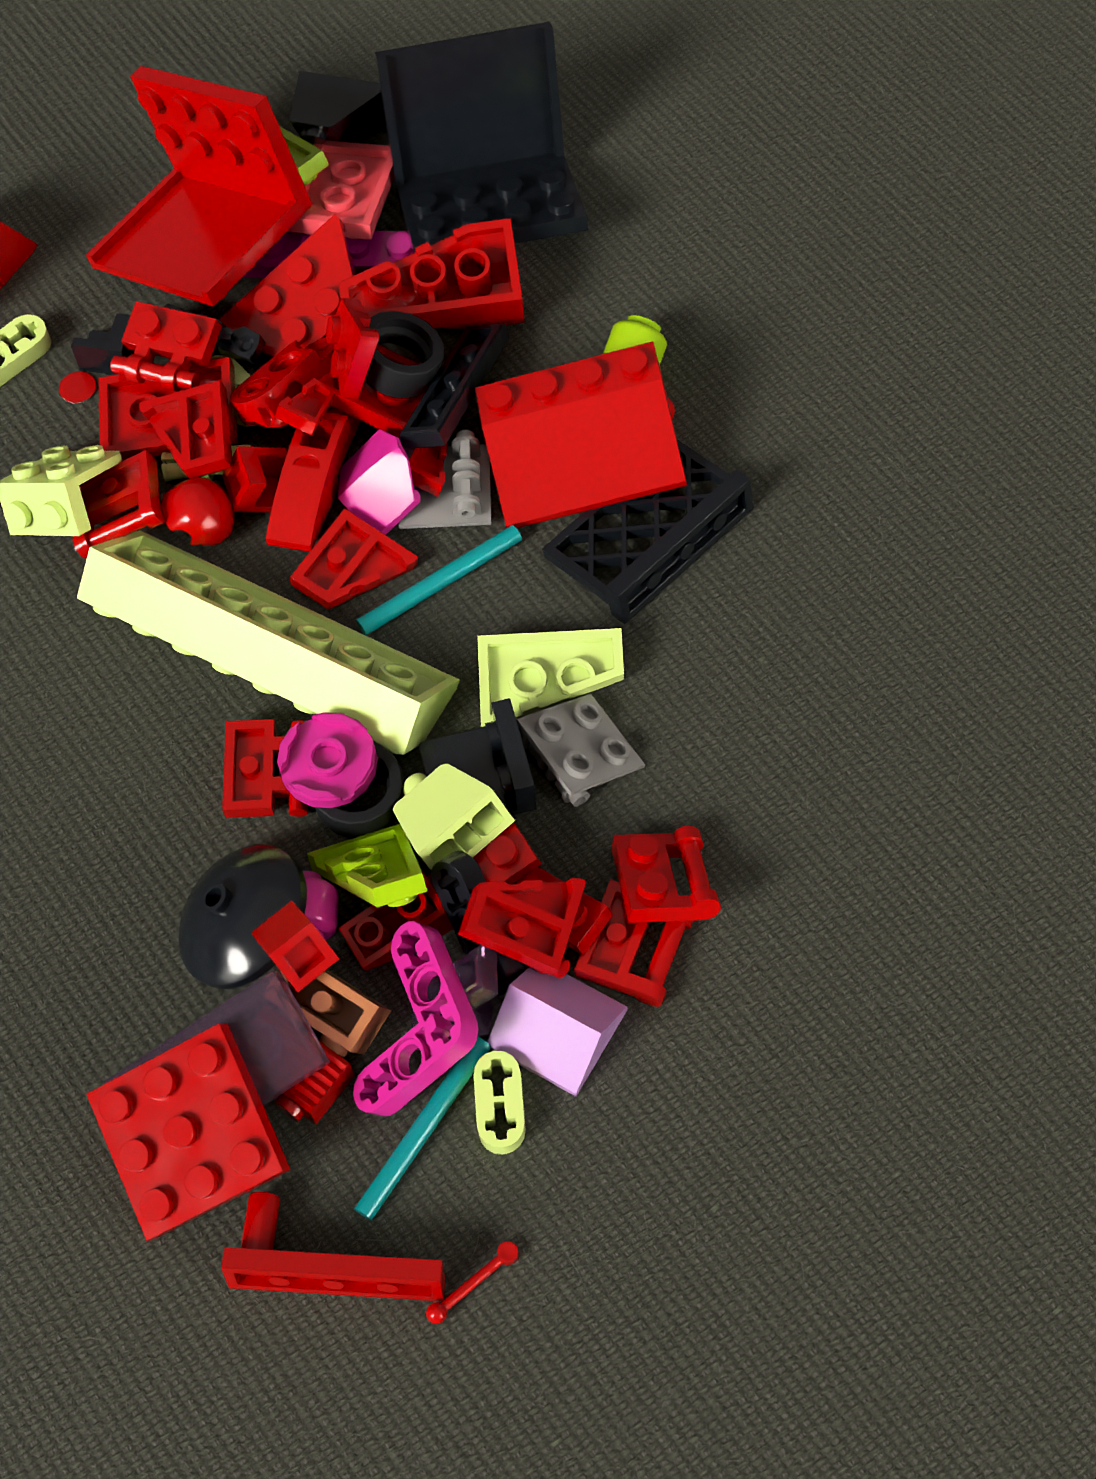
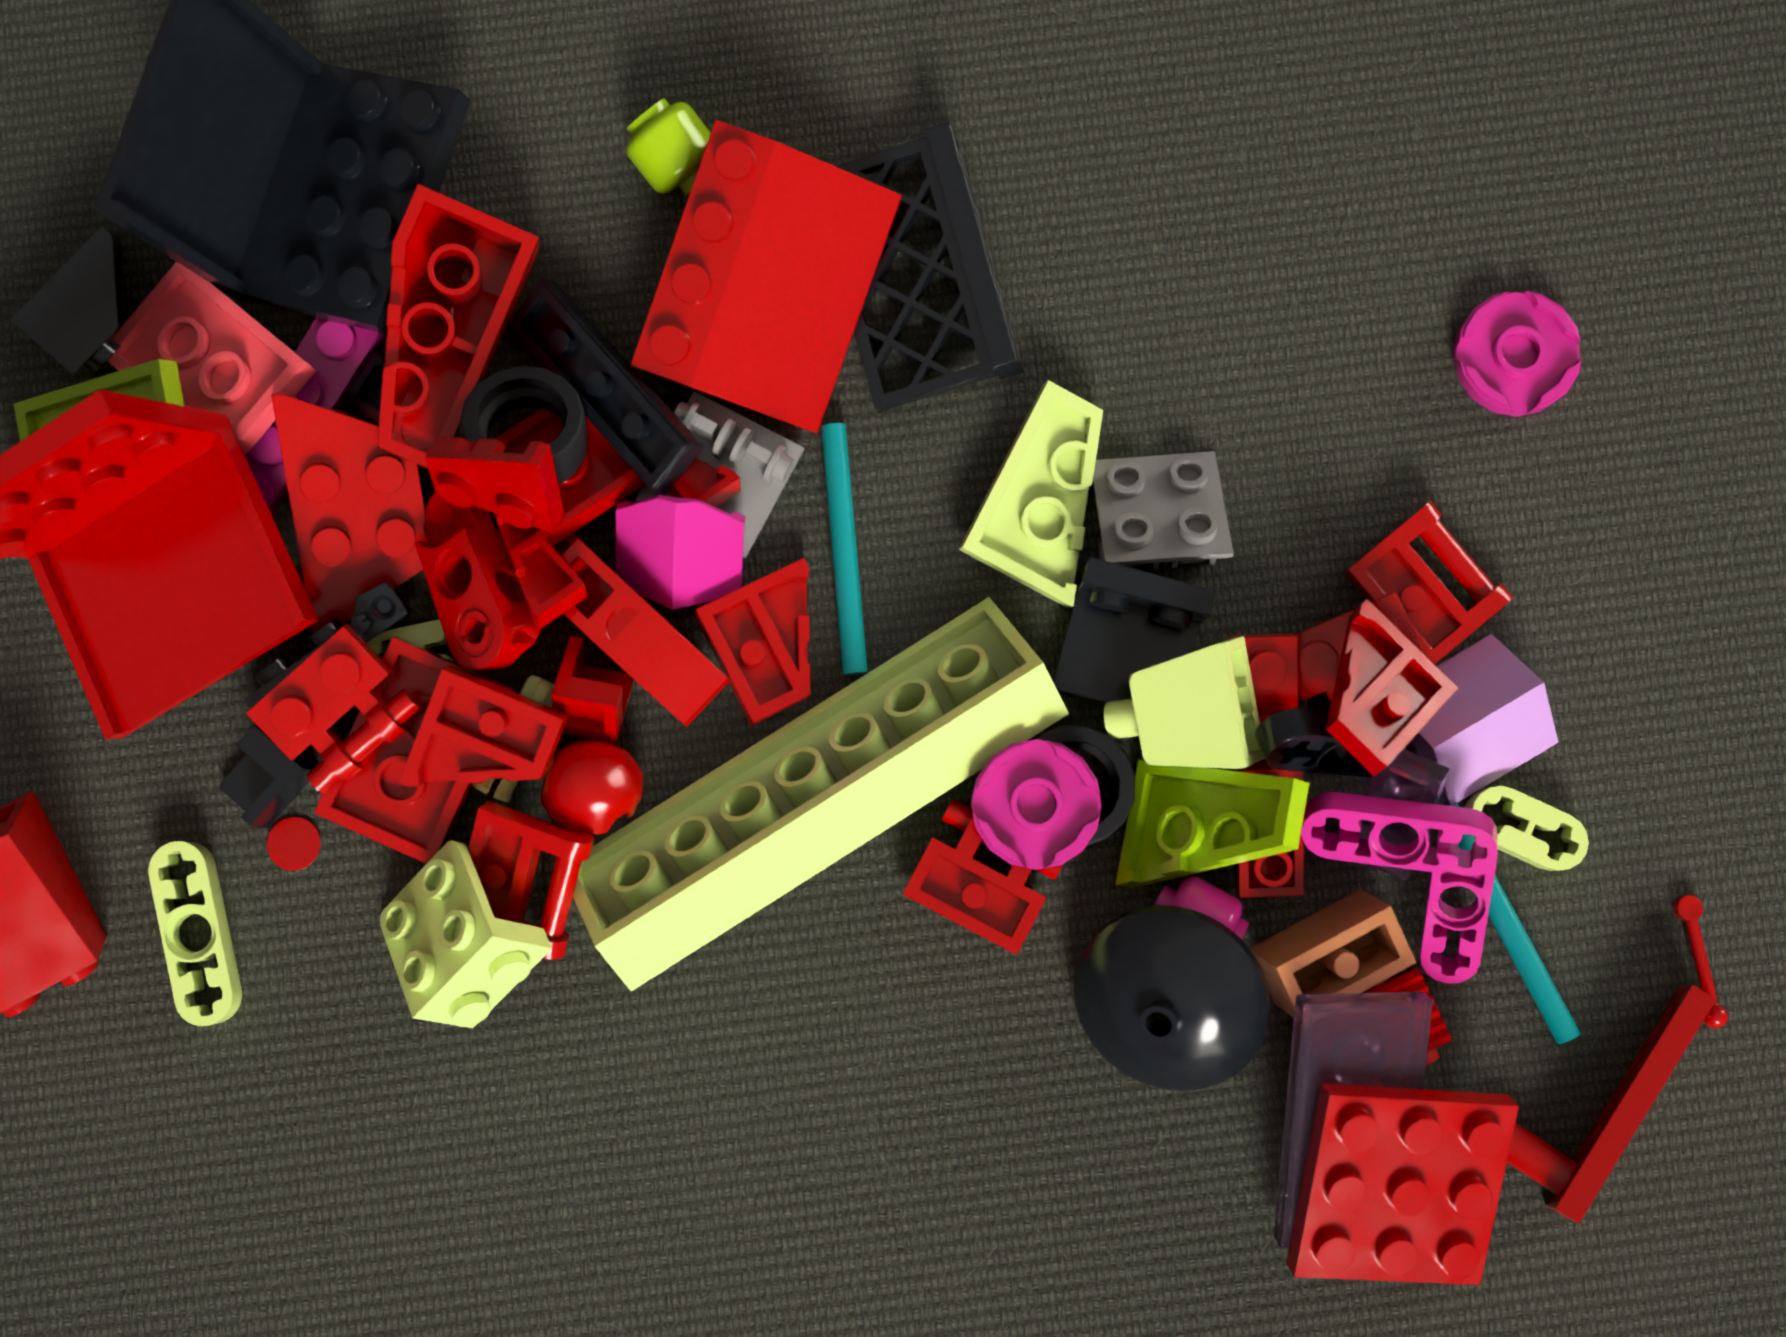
camera: 65 degrees left, 20 degrees up
(295, 946) = (1280, 964): red panel -> none
(648, 879) = (1374, 527): red plate -> none
(840, 920) = (1517, 353): none -> dark pink tile

